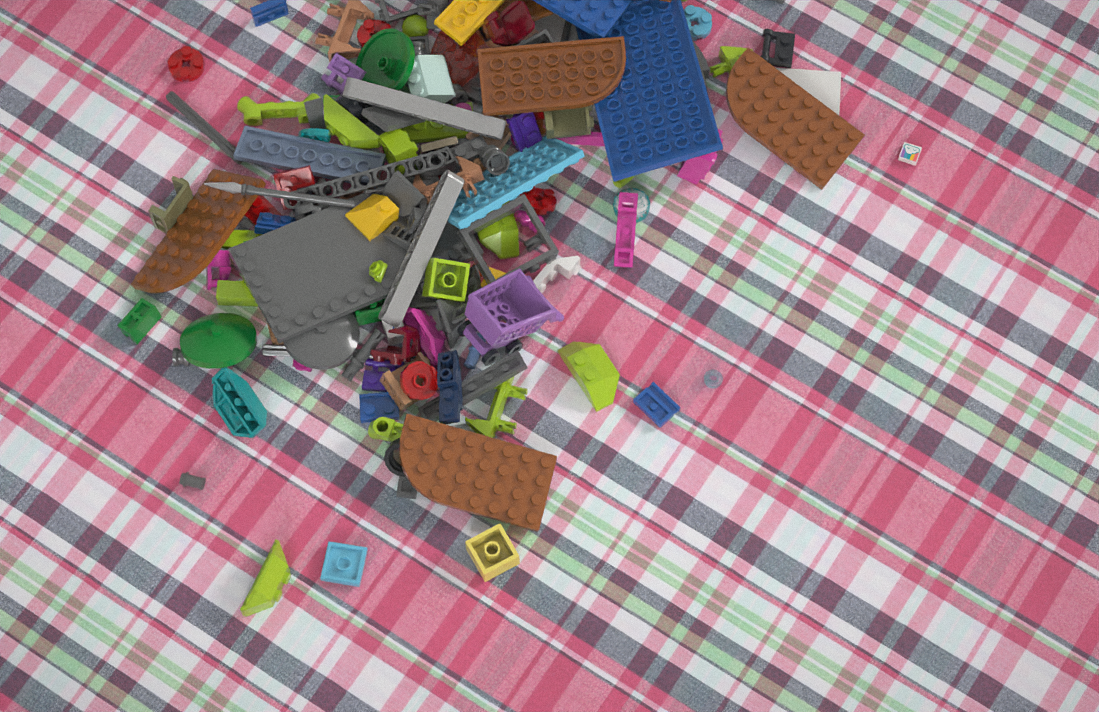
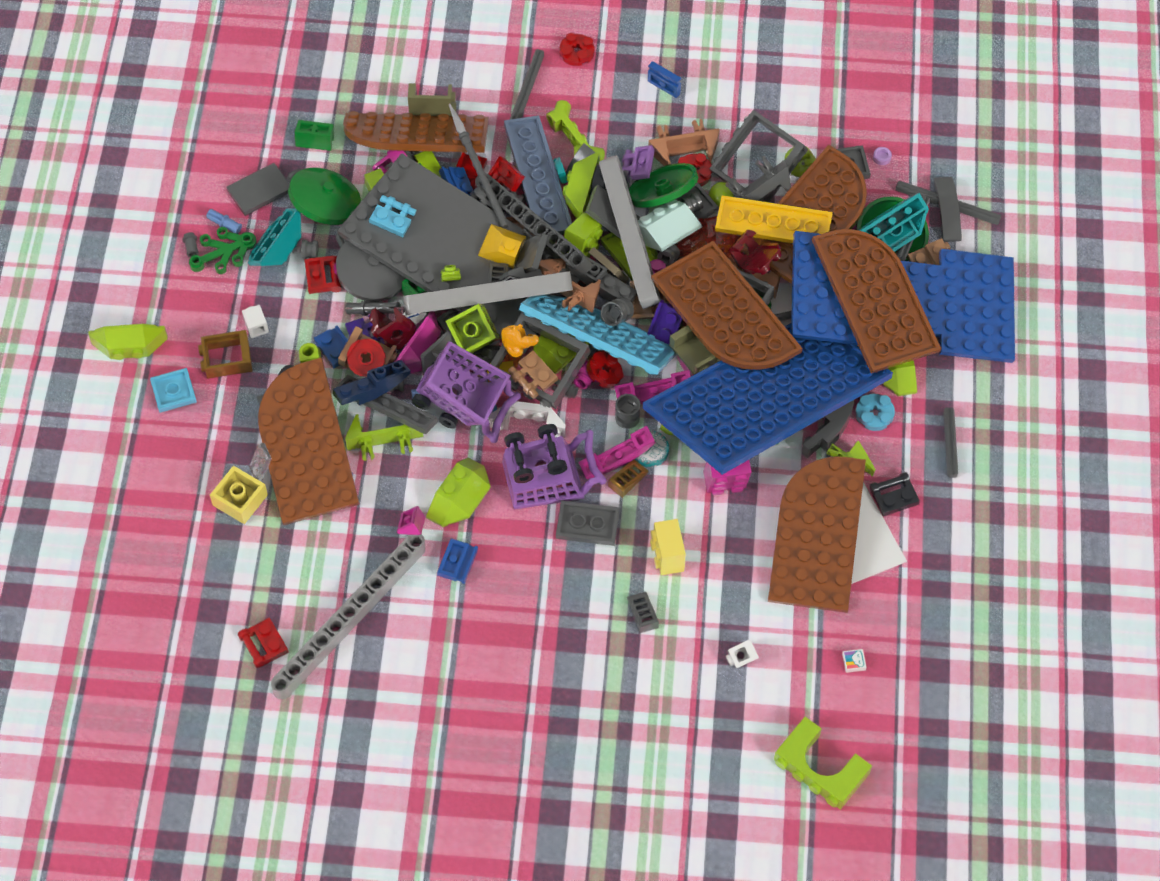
camera: 60 degrees right, 5 degrees down
(166, 395) = (259, 189): none -> dark grey tile
(185, 441) = (224, 221): none -> medium blue axle
(216, 454) = (223, 249): none -> green plant
(263, 380) = (309, 249): none -> dark grey wheel
(294, 387) = (316, 275): none -> red plate
(296, 290) = (390, 220): none -> medium azure plate
(312, 461) = (255, 321): none -> white brick
(341, 483) = (221, 341): none -> pearl gold window
(470, 519) = (260, 462): none -> clear plate
(488, 246) = (515, 339): none -> light orange hair
(524, 246) = (537, 370): none -> medium nougat plate
(578, 173) = (651, 389): none -> dark pink slope
(589, 202) = (627, 411): none -> dark grey wheel
(600, 423) = (411, 522): none -> dark pink slope
(618, 312) = (559, 469): none -> medium lavender piece
(647, 593) = (269, 640): none -> red plate
(655, 247) = (622, 490): none -> pearl gold slope
(662, 523) = (346, 623): none -> light grey beam
(677, 286) = (587, 523): none -> dark grey plate
(713, 383) = (511, 601): clear light blue plate -> none
(740, 233) = (668, 547): none -> light yellow brick
(790, 279) = (646, 625): none -> dark grey slope
(866, 225) = (749, 654): none -> white brick
(974, 238) = (834, 788): none -> lime arch

